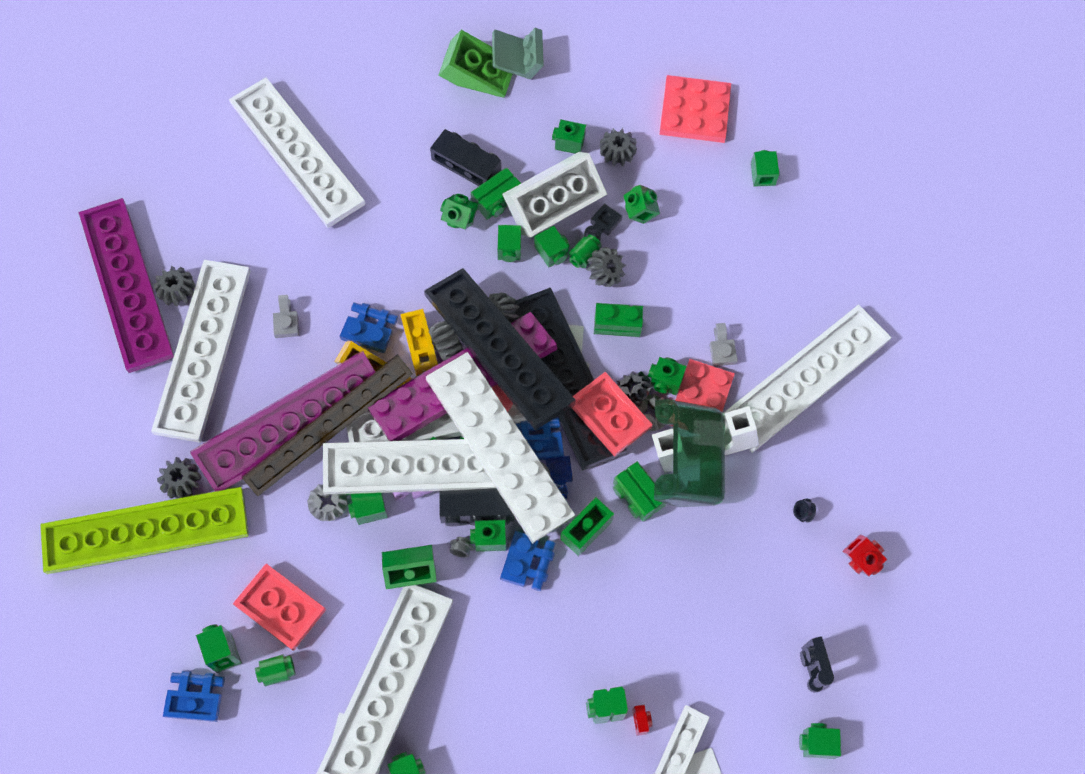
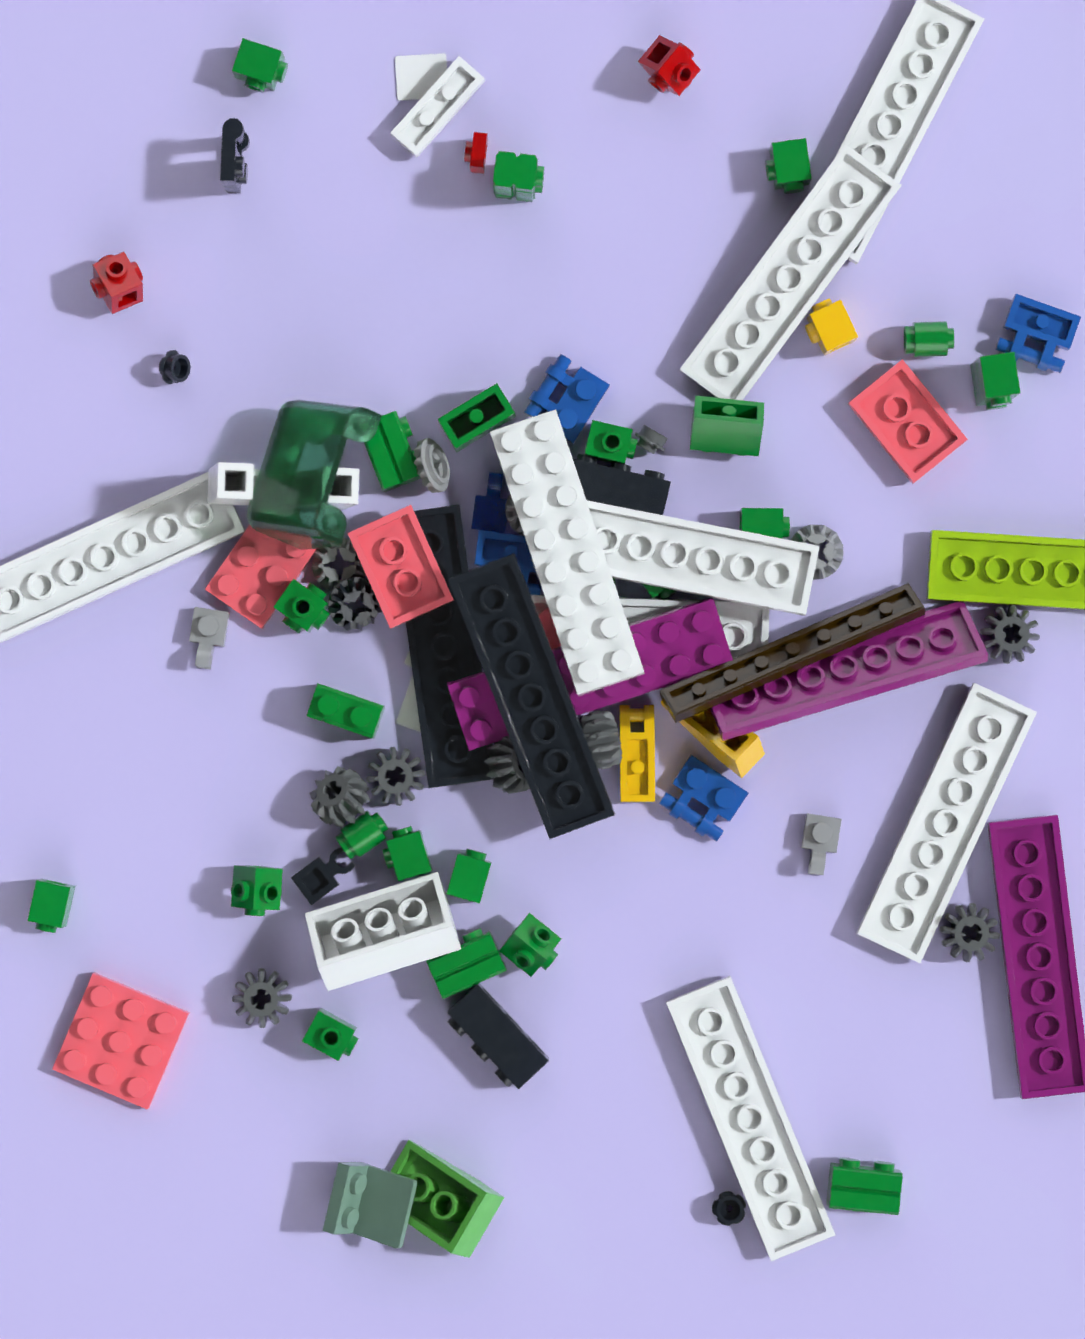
camera: 165 degrees left, 20 degrees up
(215, 128) = (864, 1187): none -> green brick
(298, 96) = (725, 1217): none -> black plate
(349, 659) = (830, 326): none -> yellow brick
(574, 298) = (399, 786): none -> dark grey gear
(604, 482) = (432, 465): none -> light grey gear

